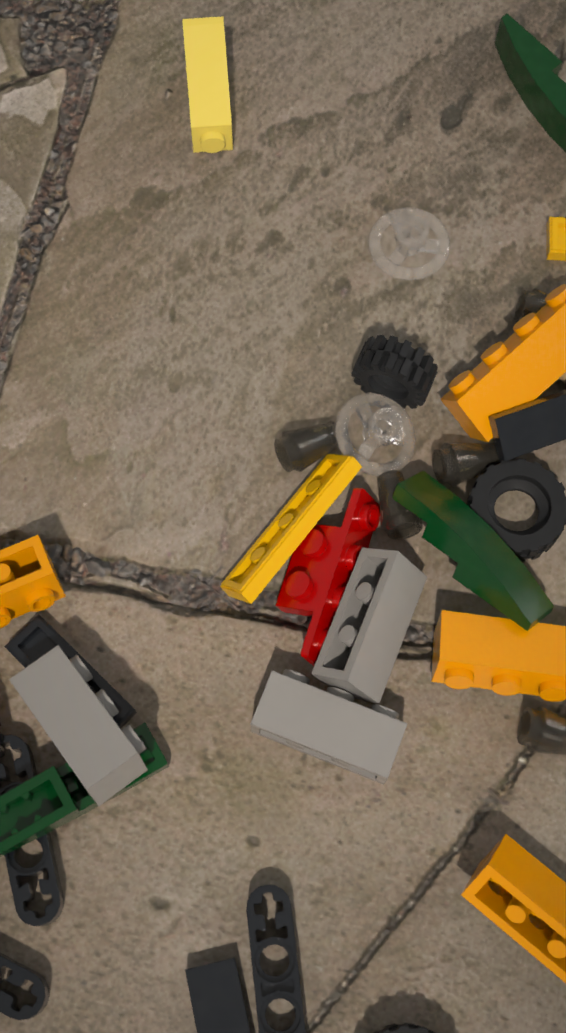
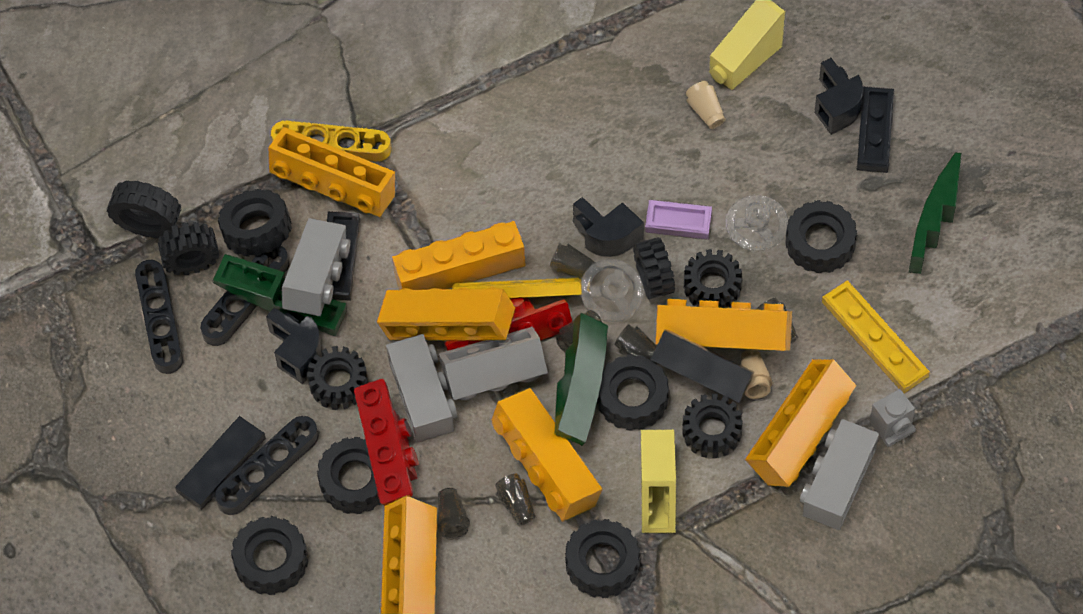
camera: 55 degrees right, 10 degrees down
(158, 813) = (299, 343): none -> black brick
(202, 559) = (461, 258): none -> light orange brick
(203, 803) = (336, 361): none -> black tyre
(234, 180) = (705, 103): none -> tan cone
(273, 626) = (446, 314): none -> light orange brick
(302, 387) = (608, 234): none -> black brick
(340, 308) = (678, 219): none -> lavender tile
(341, 59) = (842, 99): none -> black brick
(380, 827) = (386, 442): none -> red bracket
(397, 67) = (875, 129): none -> black tile
(418, 893) = (333, 491): none -> black tyre
(455, 312) = (712, 264): none -> black tyre
(487, 172) = (818, 259): none -> black tyre
(518, 819) = (451, 517): none -> clear smoke cone

